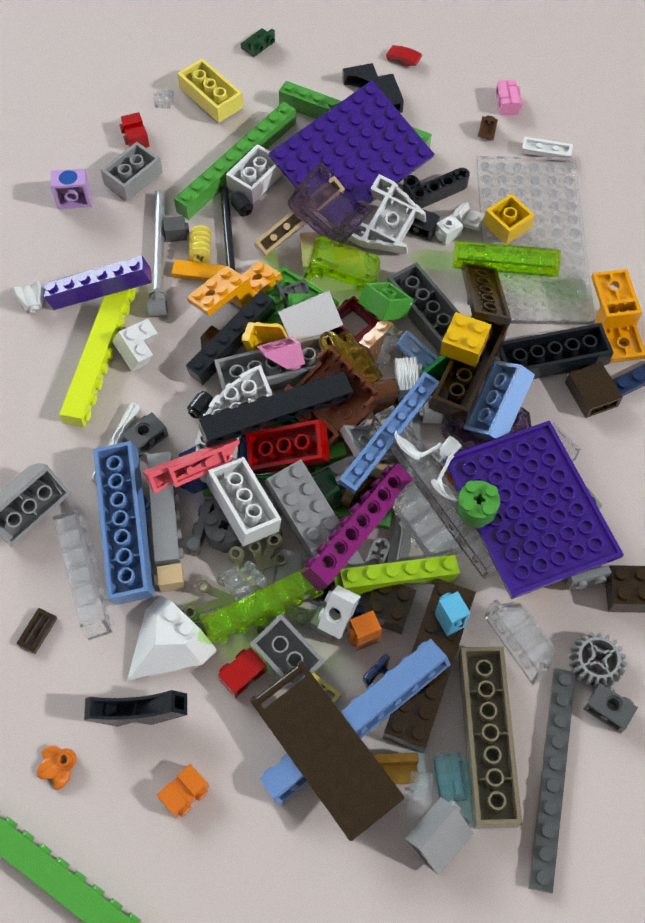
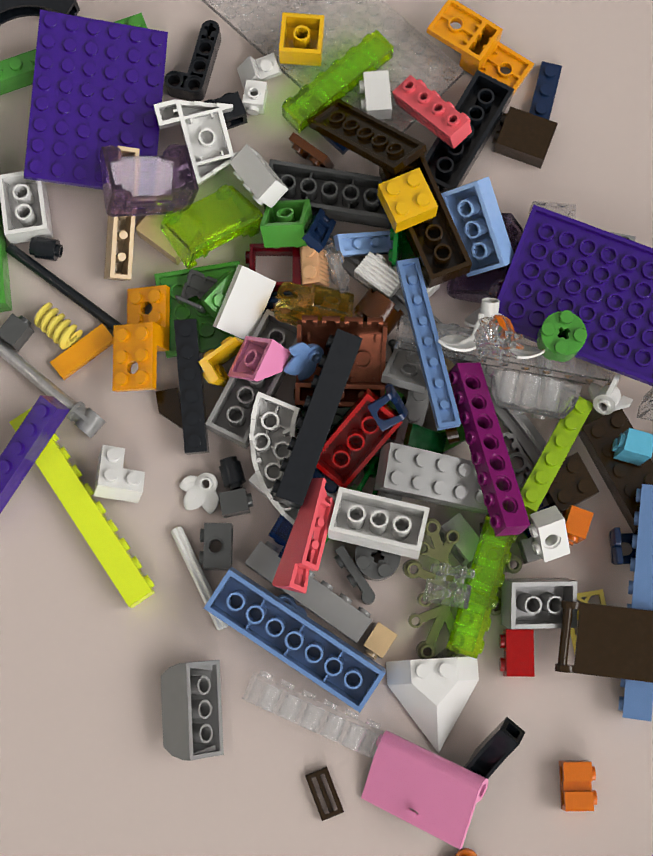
camera: 45 degrees left, 15 degrees up
(90, 682) = (418, 779): none -> bright pink door
(170, 399) = (198, 495): none -> white plate
(182, 421) = (235, 502): none -> dark grey brick
(304, 373) = (304, 360): none -> medium blue plate
(332, 452) = (392, 395): none -> dark blue piece
(397, 262) = (258, 177): none -> white brick
(398, 318) = (319, 230): none -> dark blue plate
(433, 462) = (496, 338): none -> clear hair
(444, 279) = (305, 149): none -> reddish brown plate
(475, 578) = (608, 398): none -> white brick
(521, 285) = (376, 94): none -> white brick
(544, 319) = (432, 111): none -> coral brick

